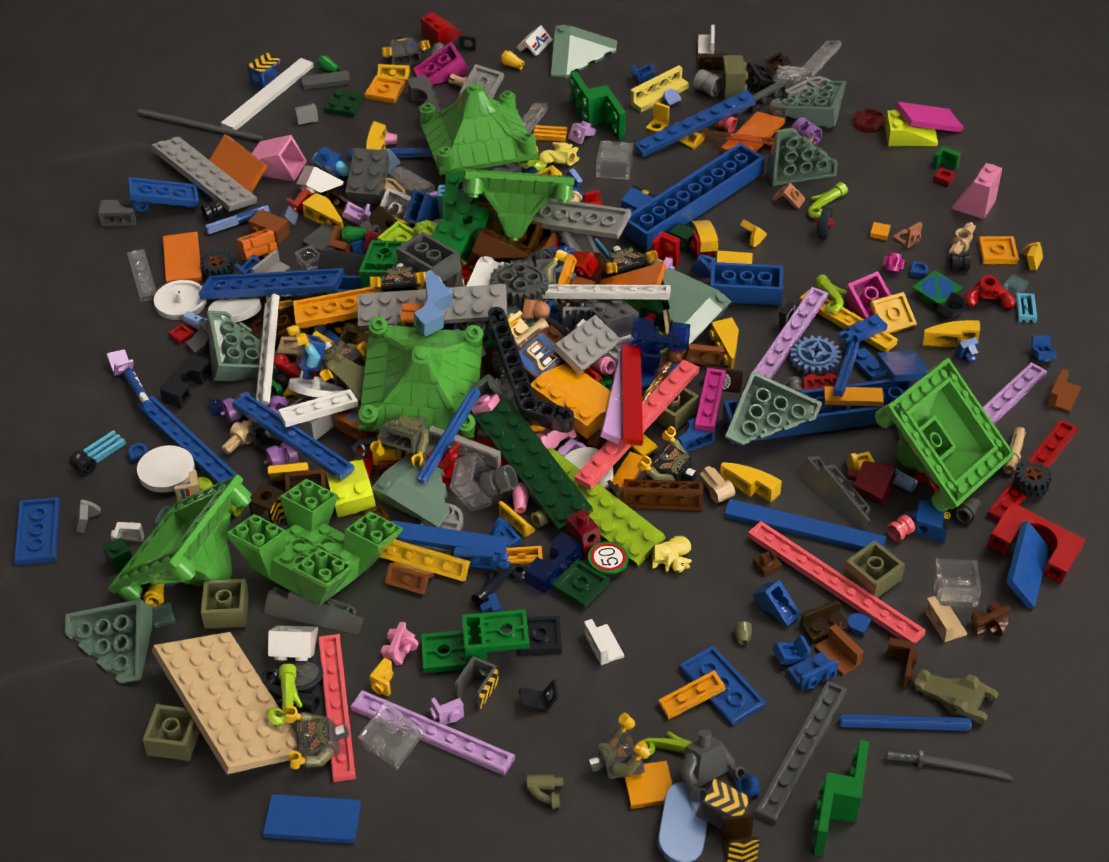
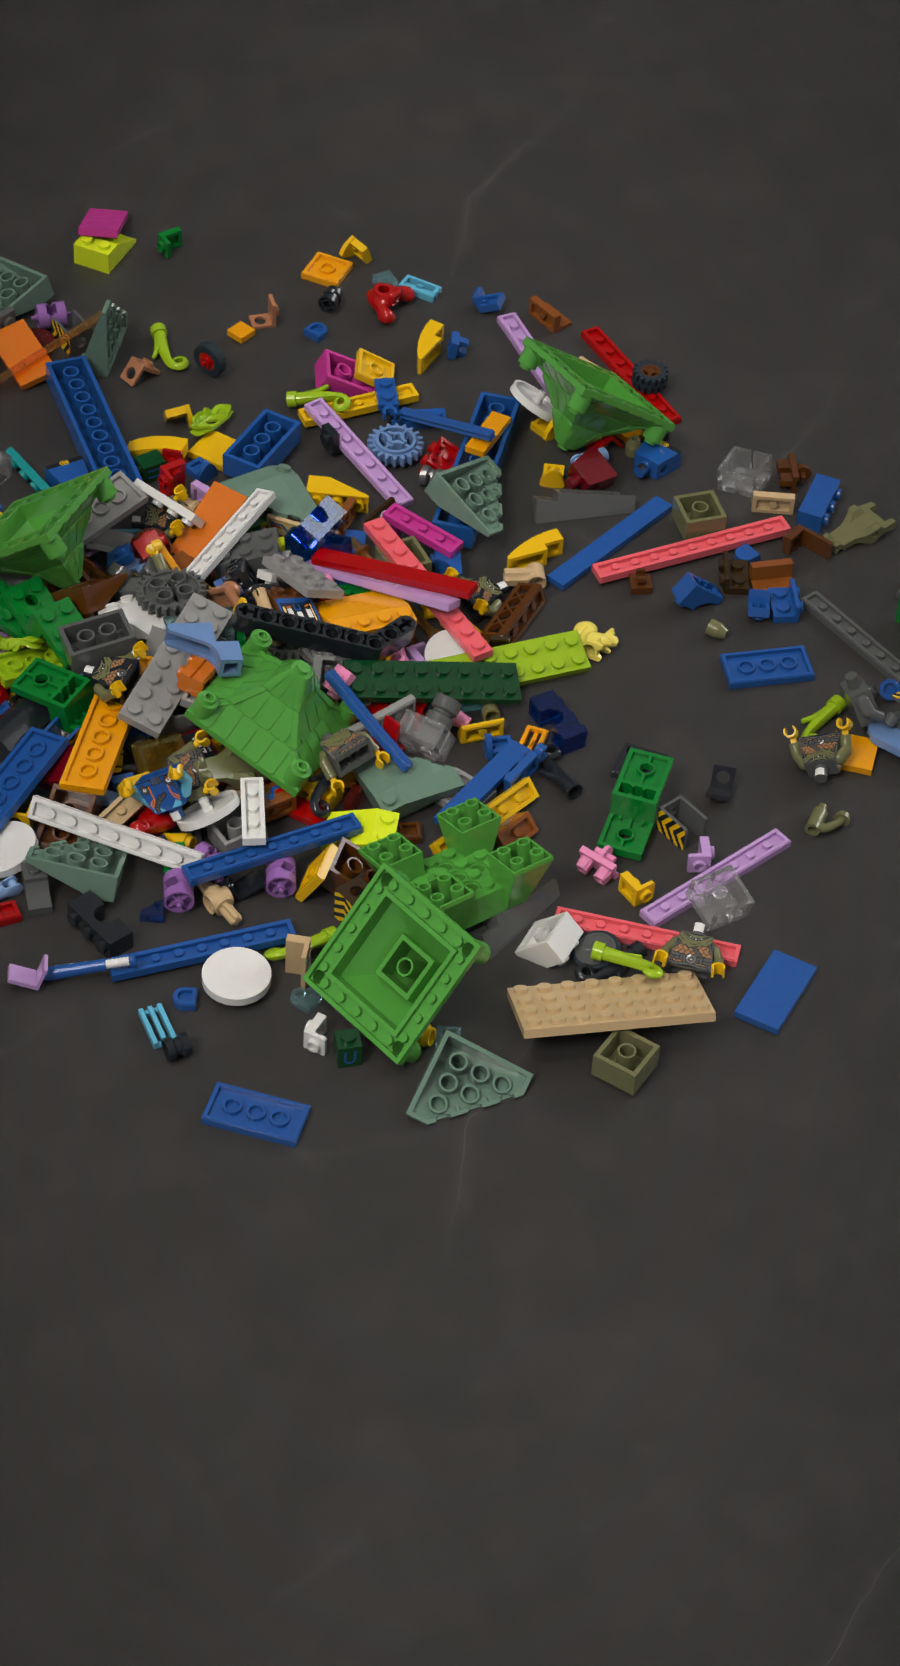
camera: 70 degrees left, 0 degrees up
(85, 510) = (265, 1065): light grey tile -> none
(225, 603) = (481, 982): olive brick -> none
(492, 605) = (593, 782): blue tile -> none
(580, 584) = (596, 712): dark green plate -> none
(584, 529) = (535, 680): dark red torso -> none
(602, 642) = (675, 726): white panel -> none
(608, 558) = (576, 681): piece -> none
(631, 253) = (174, 508): none -> white plate
(634, 176) = (26, 471): none -> teal plate
(691, 695) = (771, 687): light orange tile -> none
(767, 247) = (219, 414): none -> lime piece
(869, 120) = (60, 268): clear red tile -> none
(893, 262) = (301, 340): dark pink gear -> none
(900, 528) = (653, 481): coral wheel -> none
(903, 365) = (459, 390): blue tile -> none
(905, 722) = (869, 571): blue axle -> none
(936, 288) = (358, 329): piece -> none
(944, 177) = (191, 257): red tile -> none
(953, 307) = (389, 330): black bracket -> none
(962, 239) = (300, 284): tan axle -> none
(965, 652) = (819, 503): none -> blue brick
(980, 192) = (247, 239): bright pink slope -> none
(1027, 565) = (748, 422): blue tile -> none
(1063, 543) = (737, 394): red arch -> none

